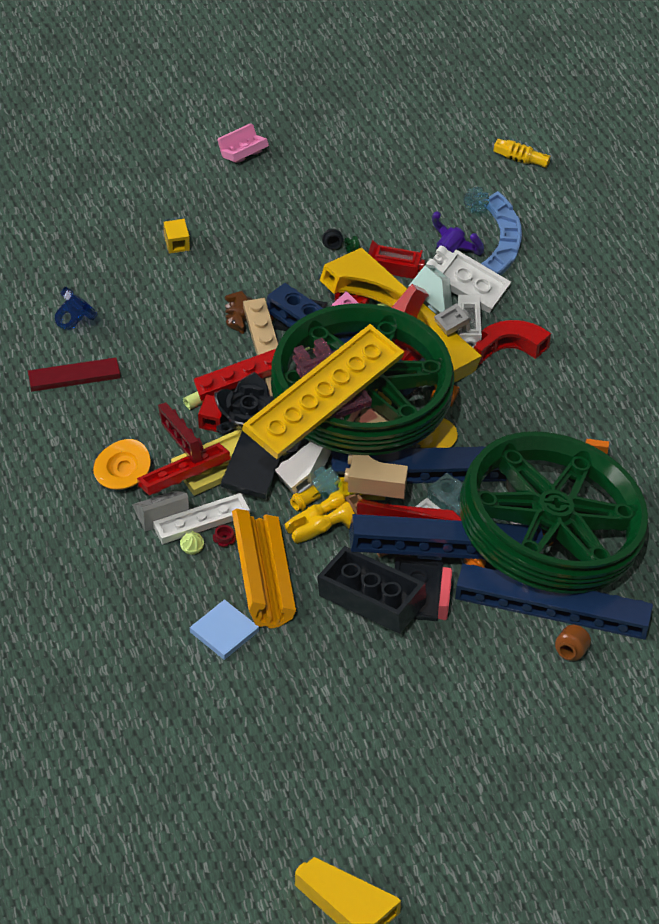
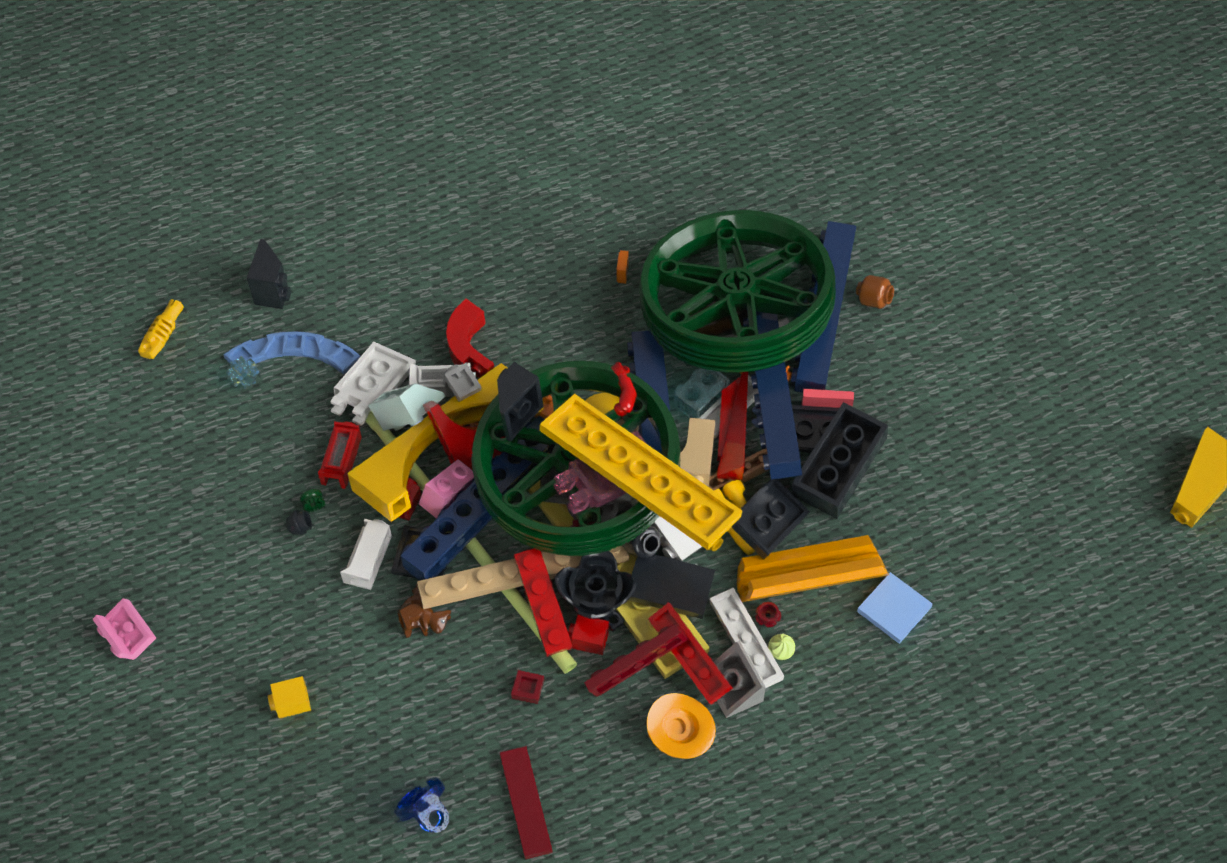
camera: 90 degrees left, 10 degrees up
(171, 375) = (527, 687): none -> dark red plate
(299, 277) = (367, 554): none -> white window
(313, 532) = (769, 517): none -> black tile
(398, 314) = (518, 398): none -> black slope
(409, 395) = (628, 394): none -> red arm
(454, 238) = (308, 395): dark purple piece -> none
(572, 207) = (267, 278): none -> black slope

